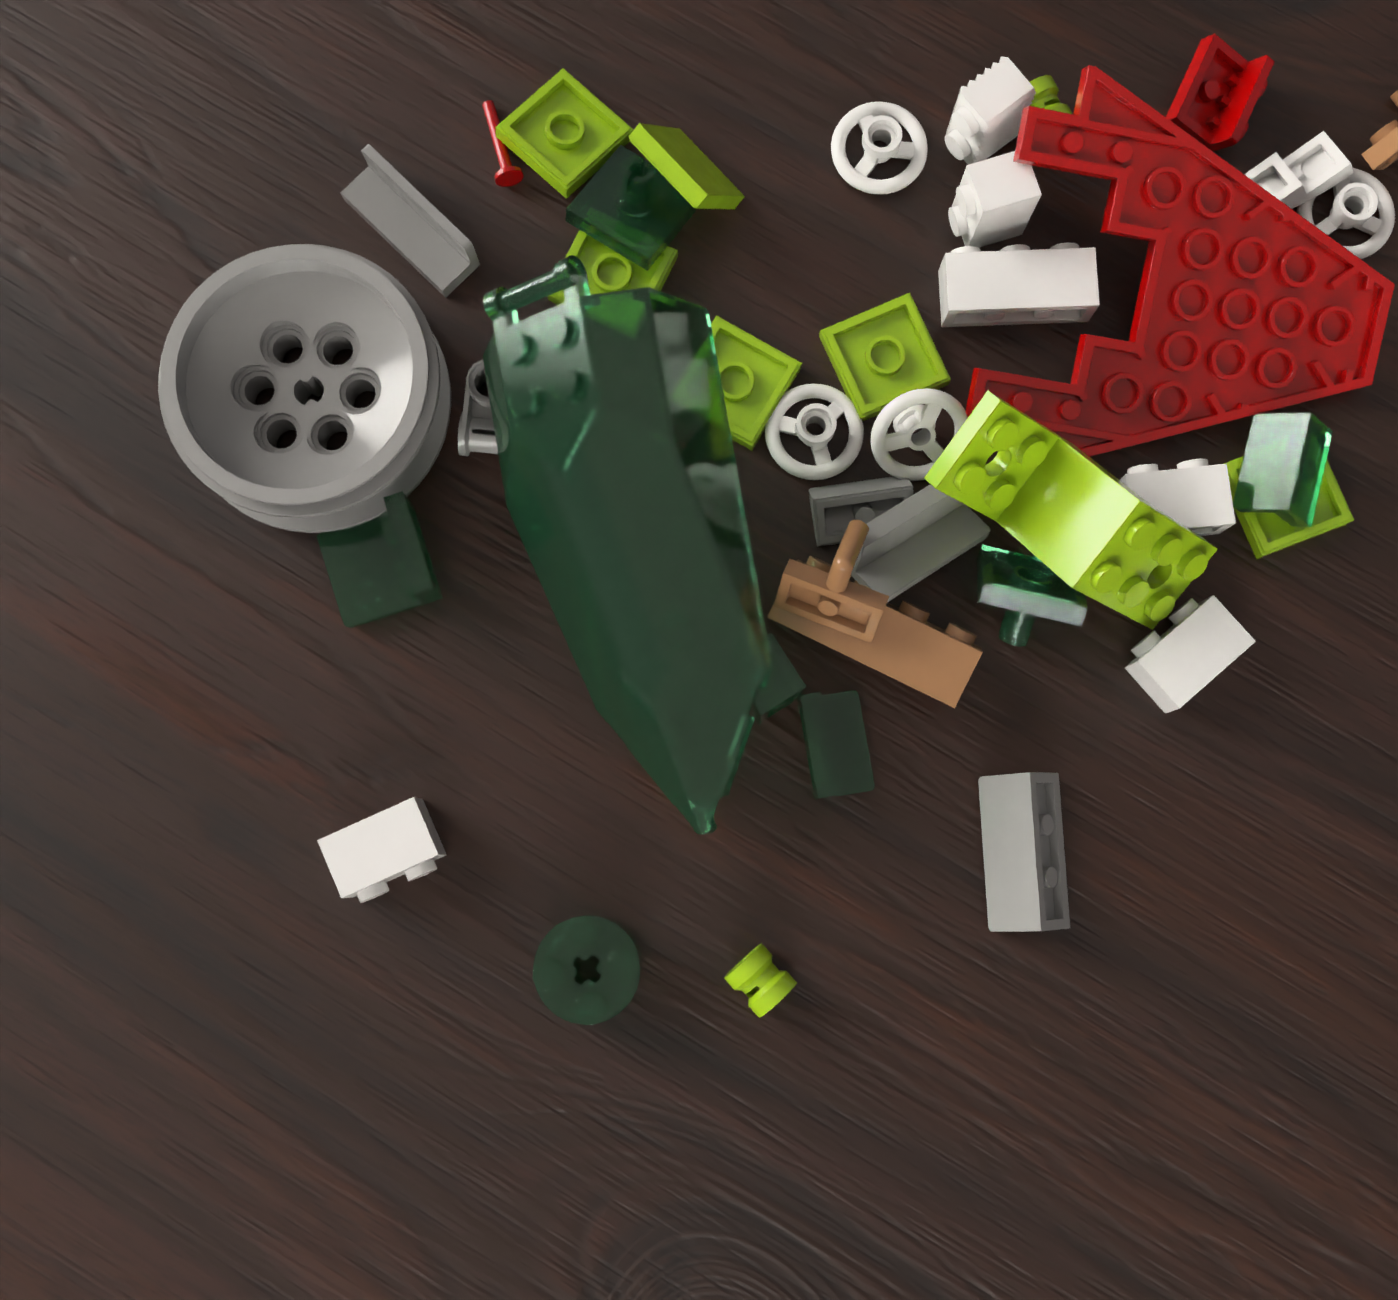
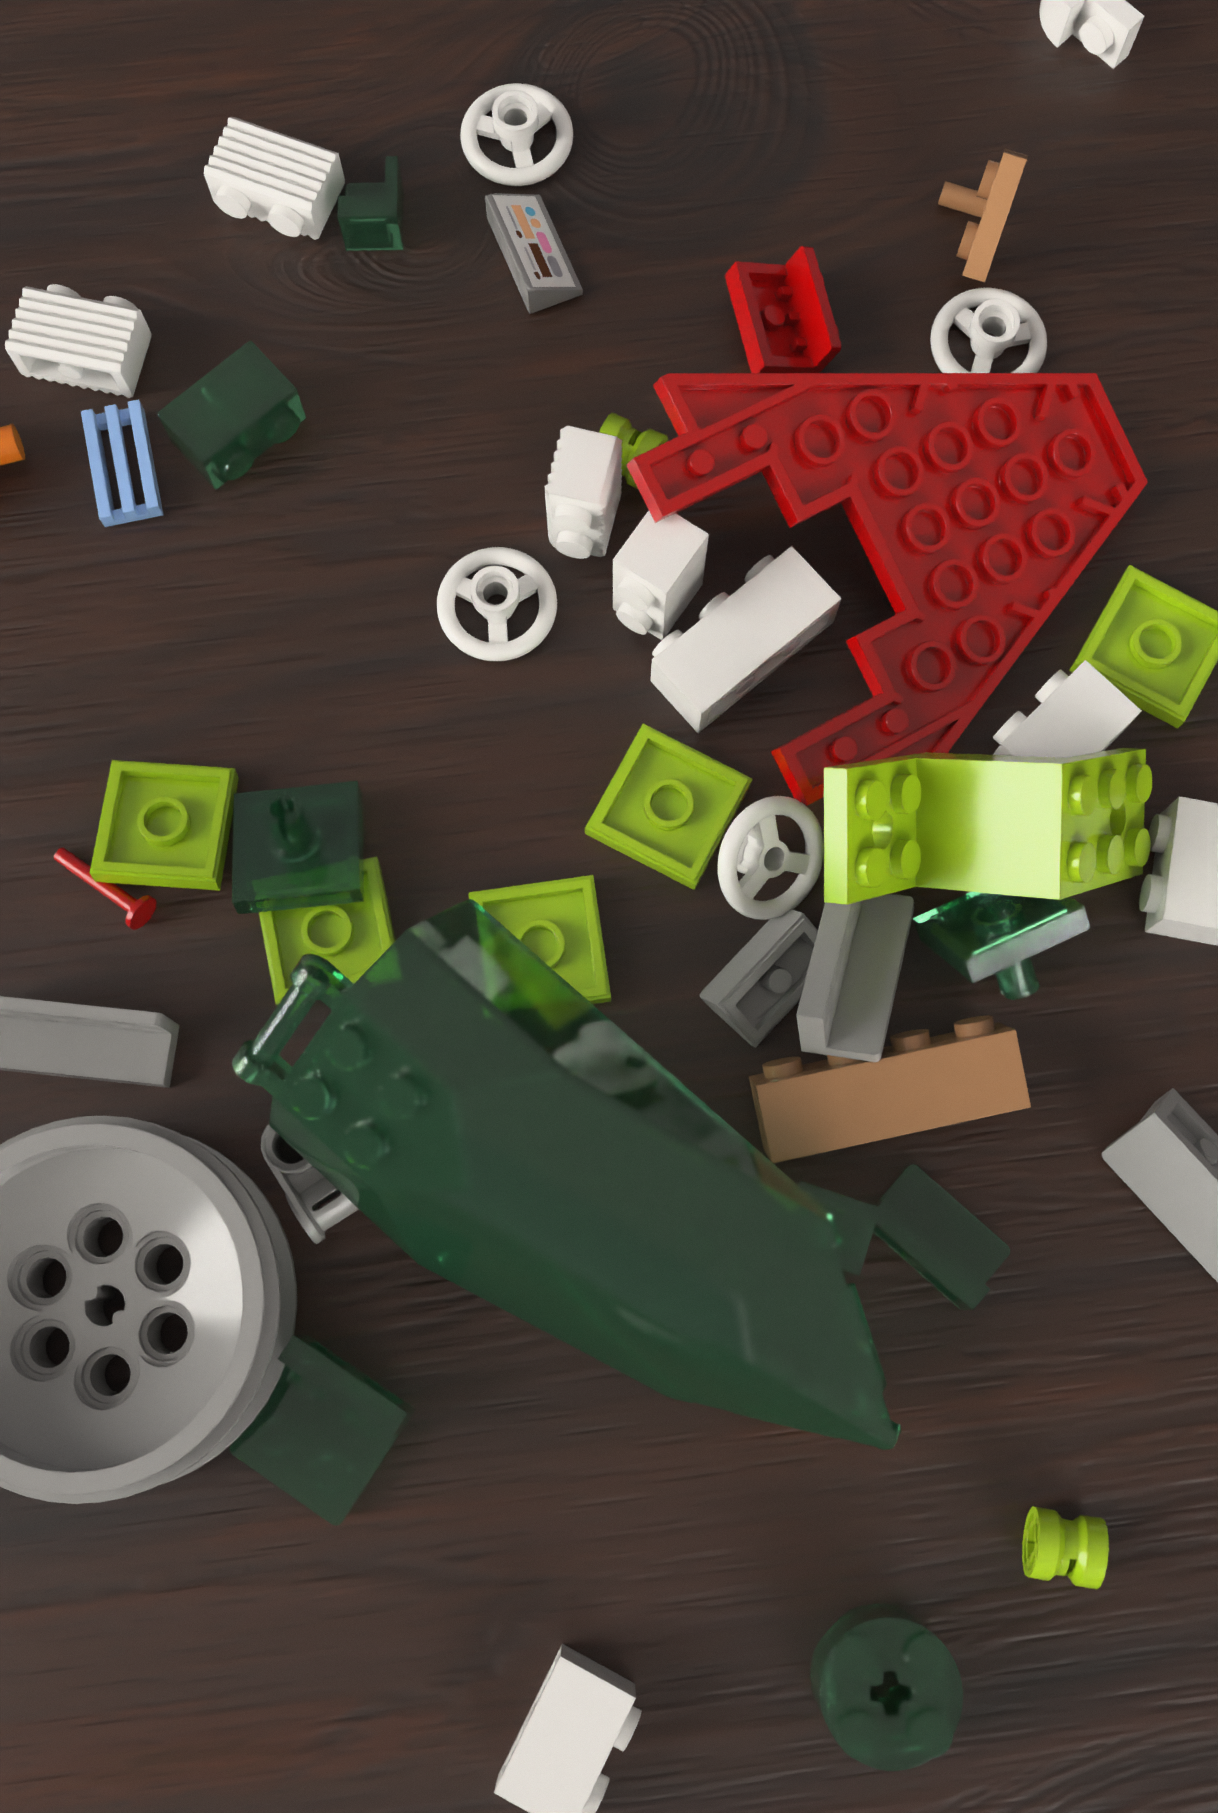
camera: 40 degrees left, 5 degrees down
(686, 167) = (323, 768): lime tile -> none
(826, 418) = (660, 910): white piece -> none
(831, 596) = (832, 1092): medium nougat plate -> none
(1283, 466) = (1136, 622): clear green panel -> none
(1304, 172) = (920, 330): white slope -> none

